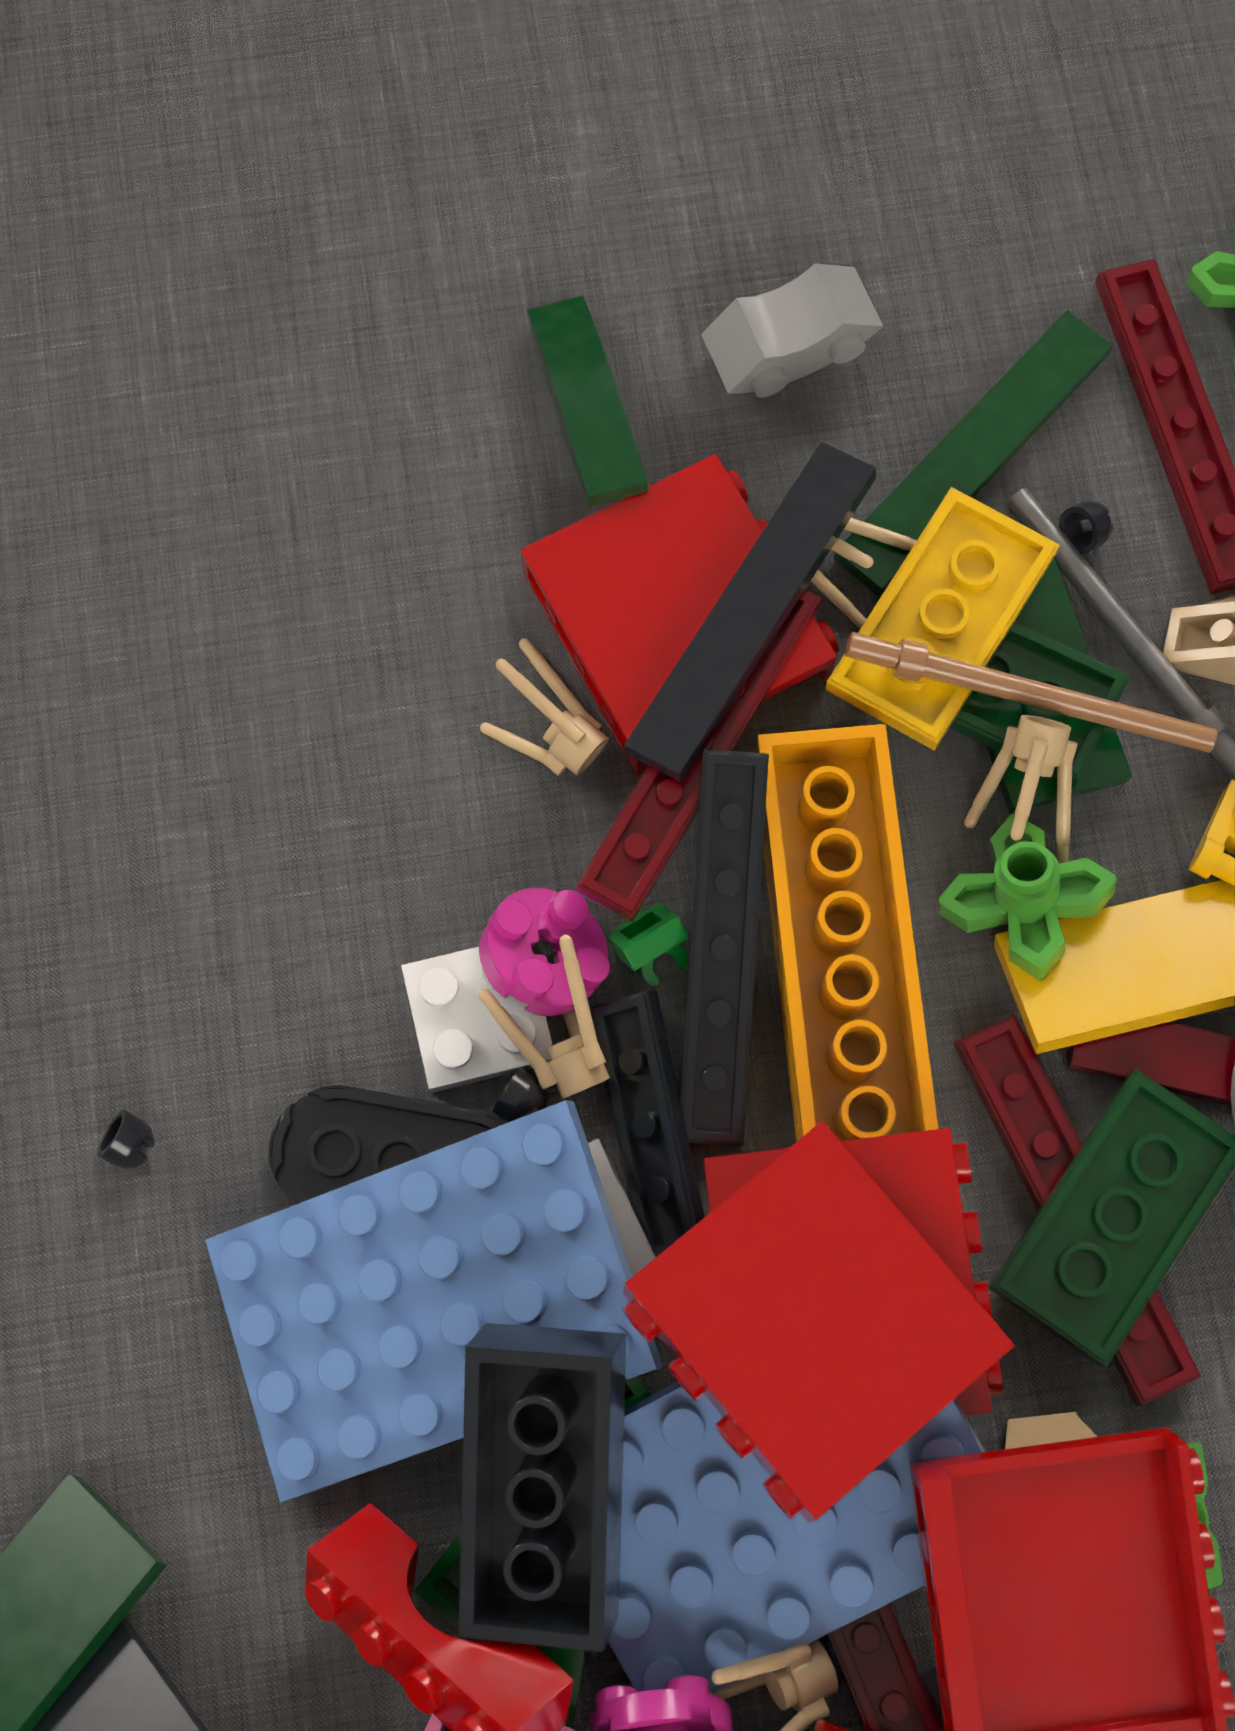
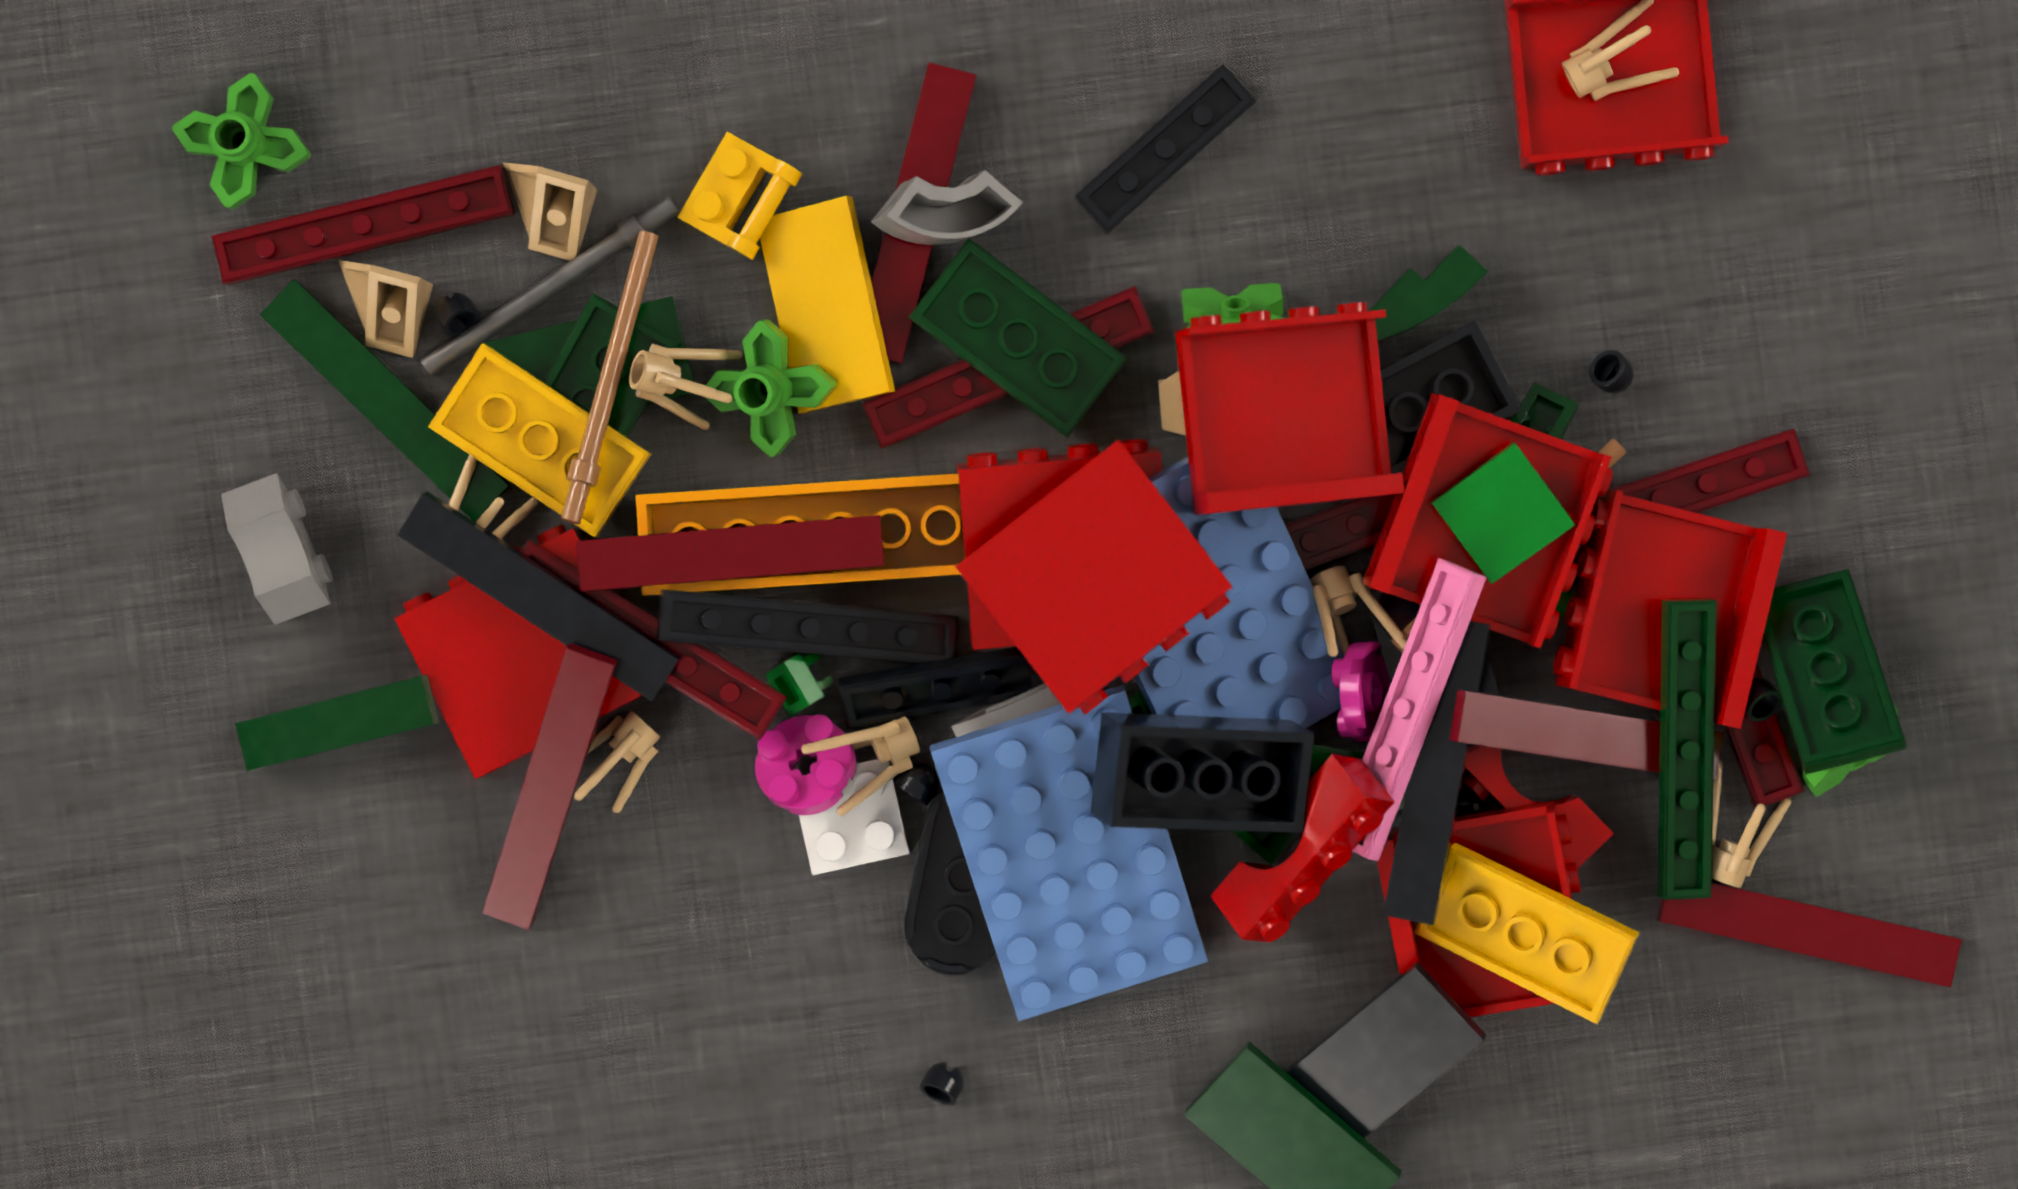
camera: 85 degrees left, 15 degrees up
(523, 633) = (549, 785): none -> dark red tile
(819, 845) = (730, 553): none -> dark red tile
(1090, 455) = (388, 305): none -> tan slope

